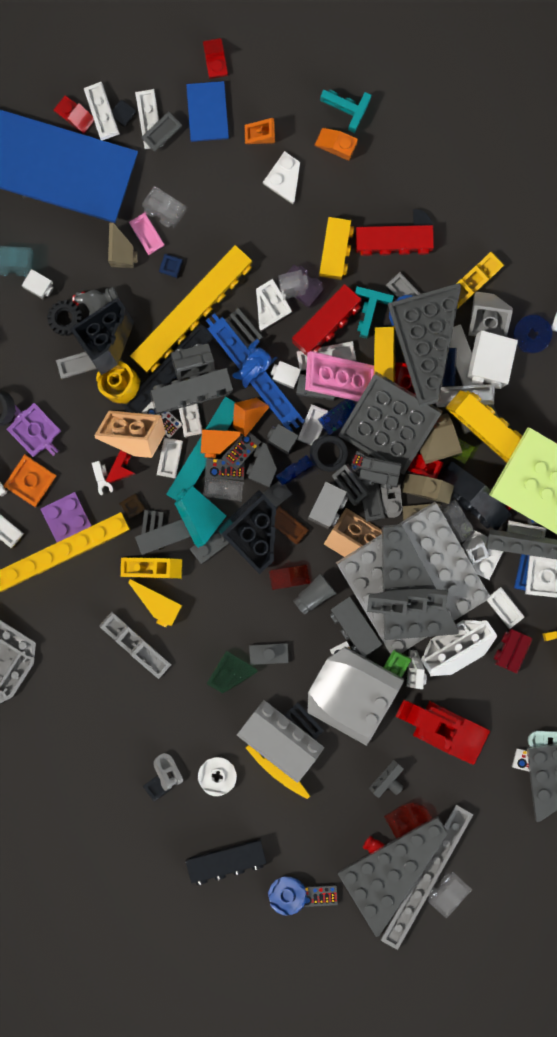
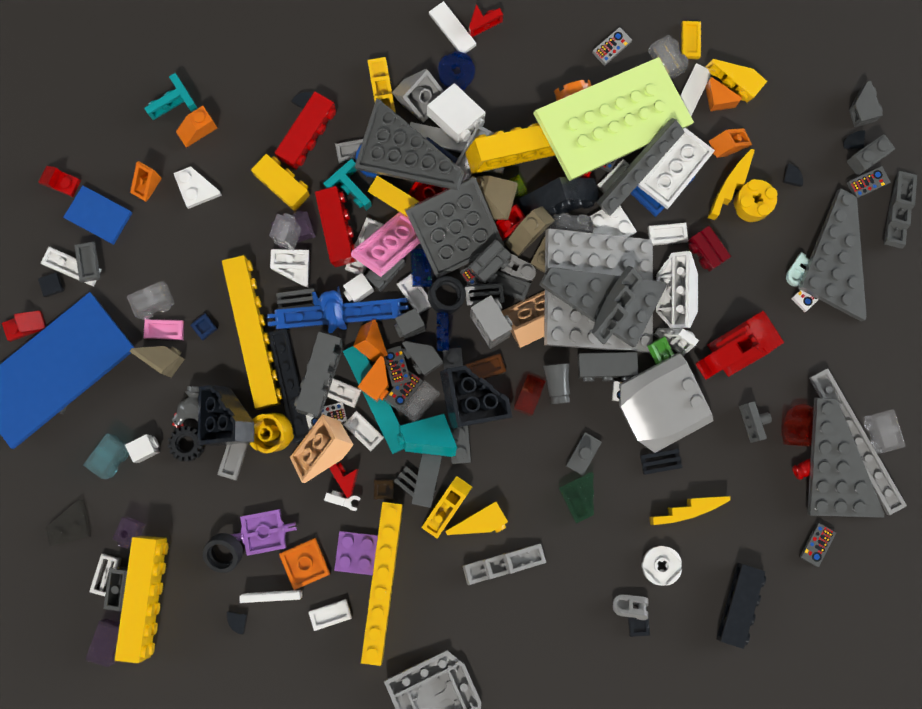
camera: 50 degrees left, 5 degrees down
(101, 111) = (35, 301): white tile -> none
(192, 361) = (294, 358): dark grey brick -> none
(280, 741) = (666, 491): light grey slope -> none
(287, 895) = (802, 571): blue tile -> none
(475, 550) = (605, 225): light grey slope -> none

